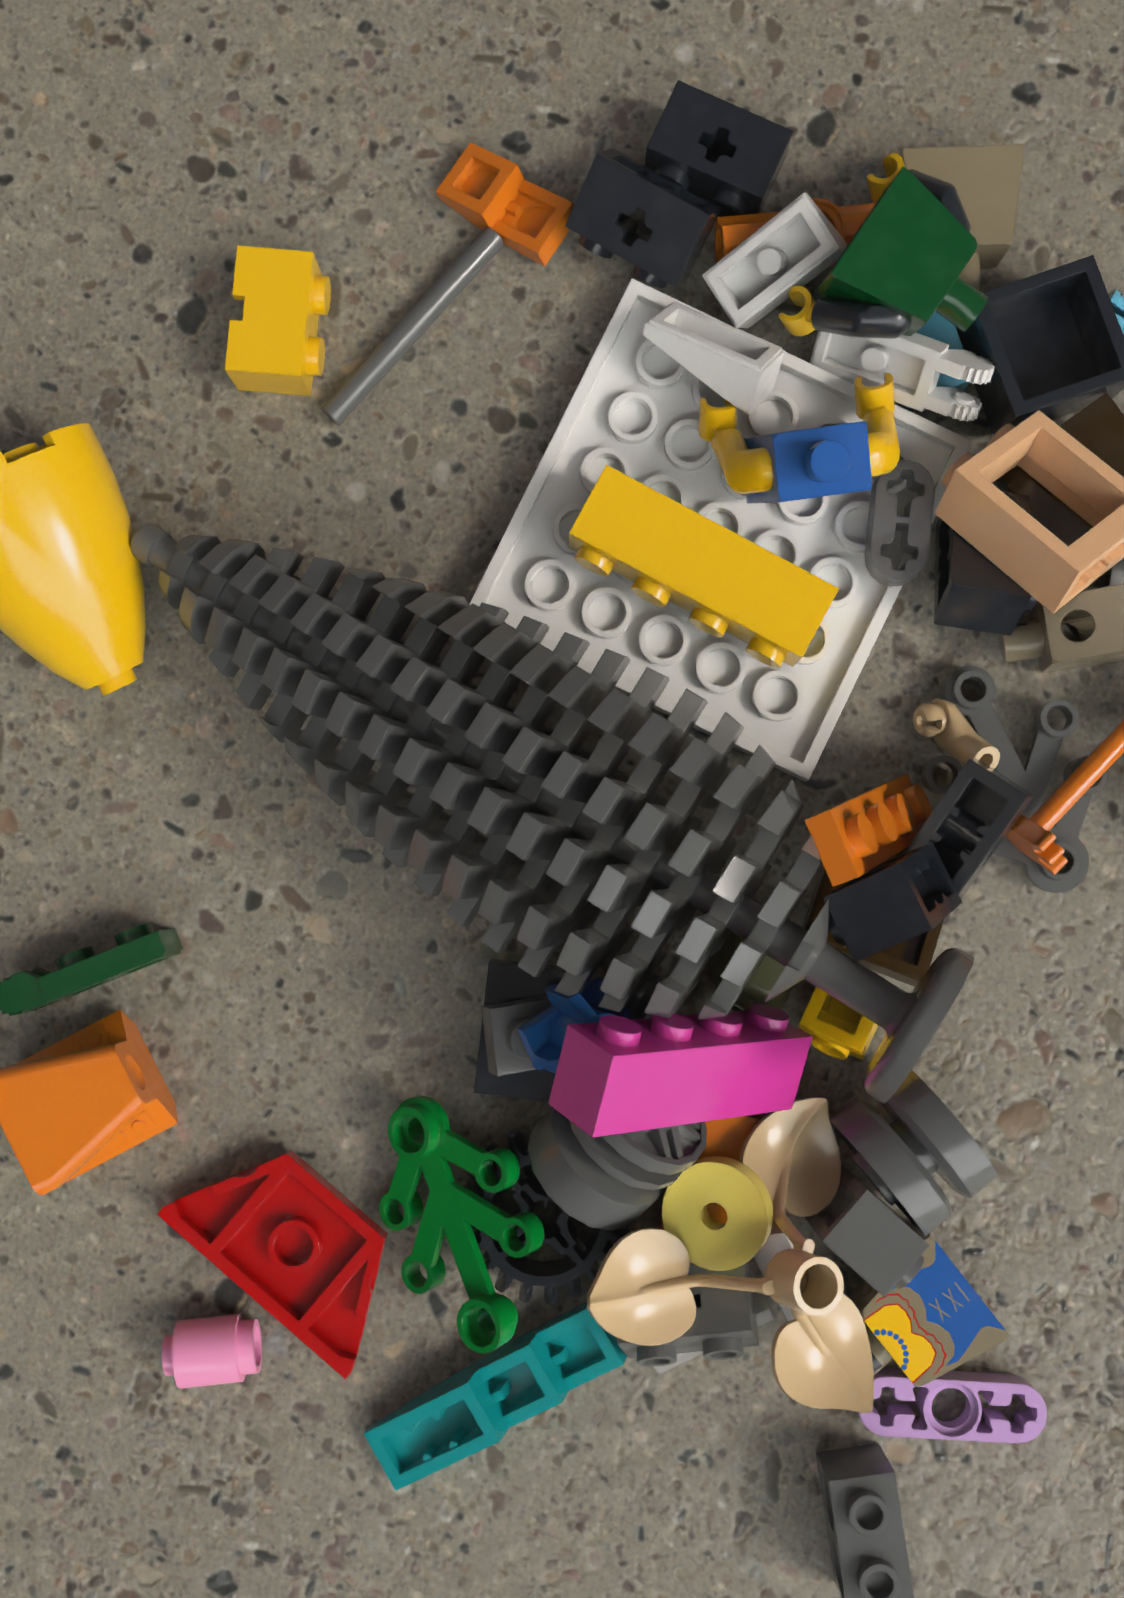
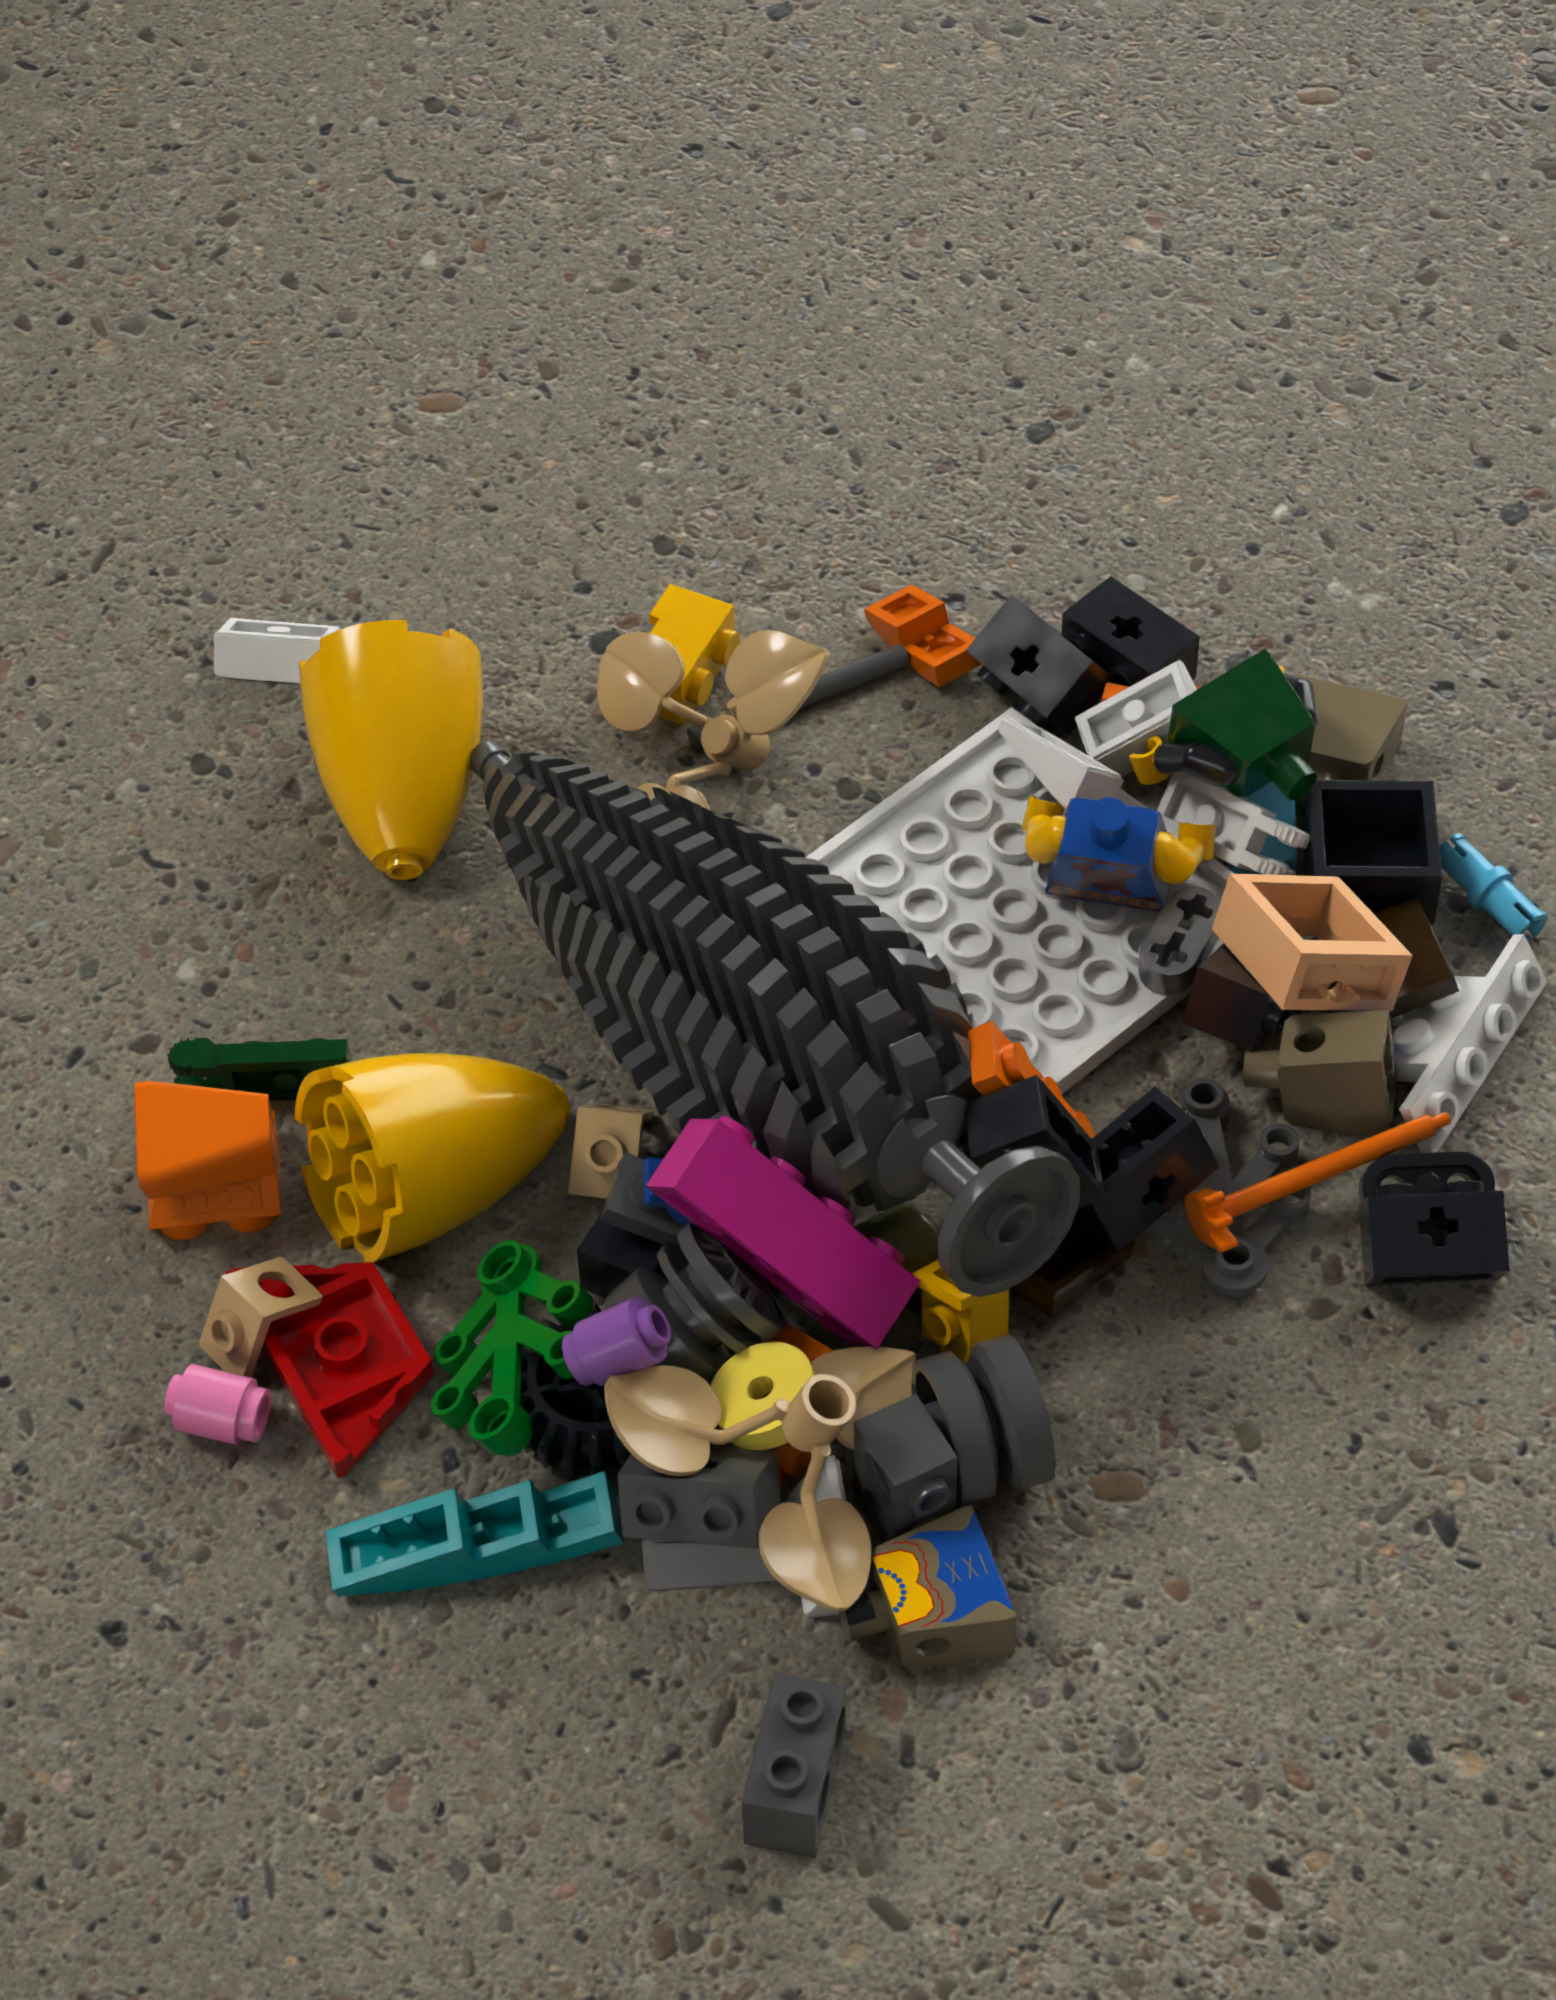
camera: 20 degrees right, 35 degrees down
(200, 1270) = (244, 1313): none -> tan bracket
(288, 1018) = (420, 1143): none -> yellow cylinder
(408, 395) = (766, 674): none -> tan plant
(444, 949) = (600, 1142): none -> tan bracket
(575, 1244) = (617, 1341): none -> medium lavender brick
(700, 568) = (978, 914): yellow brick -> none
(996, 1390) = (946, 1730): lavender beam -> none

